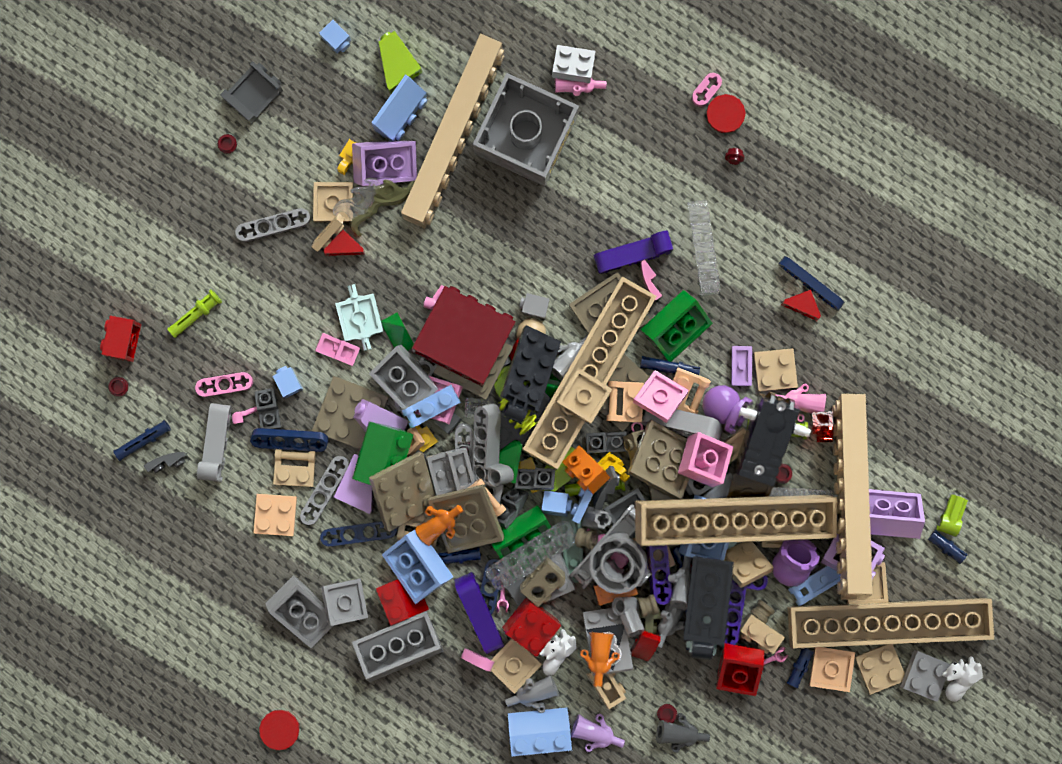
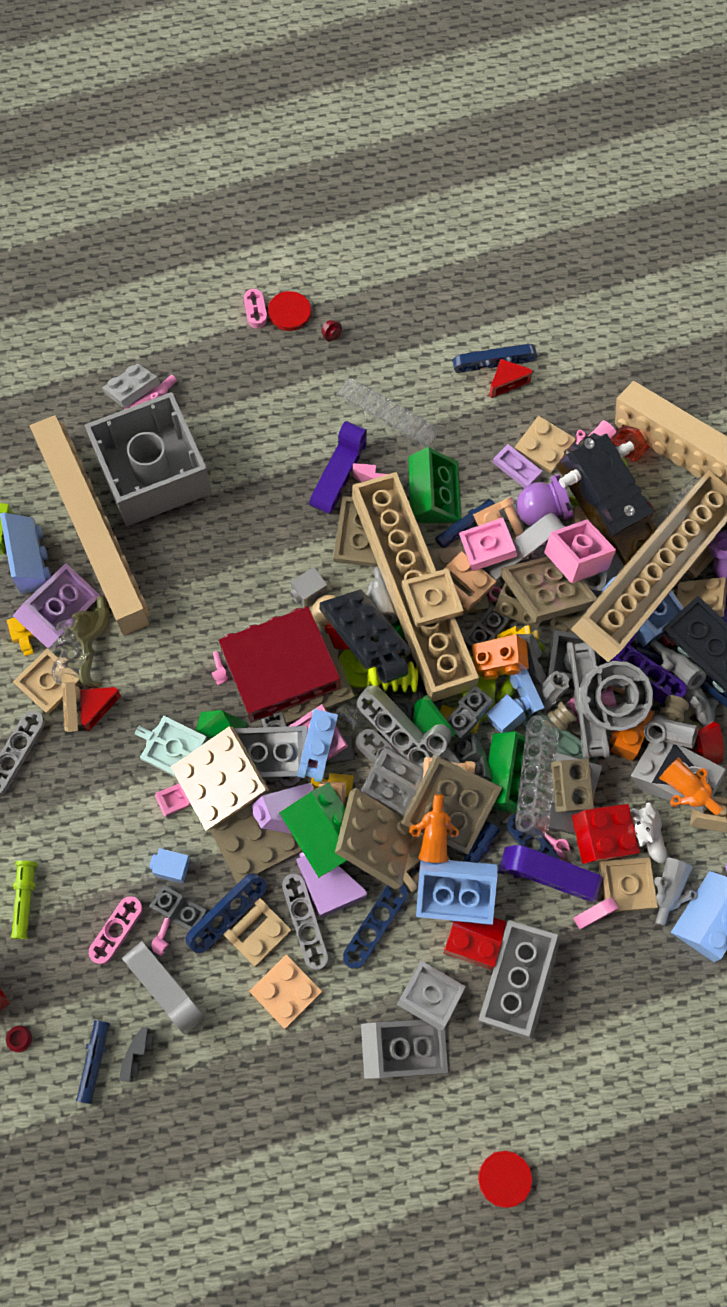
camera: 50 degrees left, 15 degrees down
(361, 365) = (219, 778): none -> plate

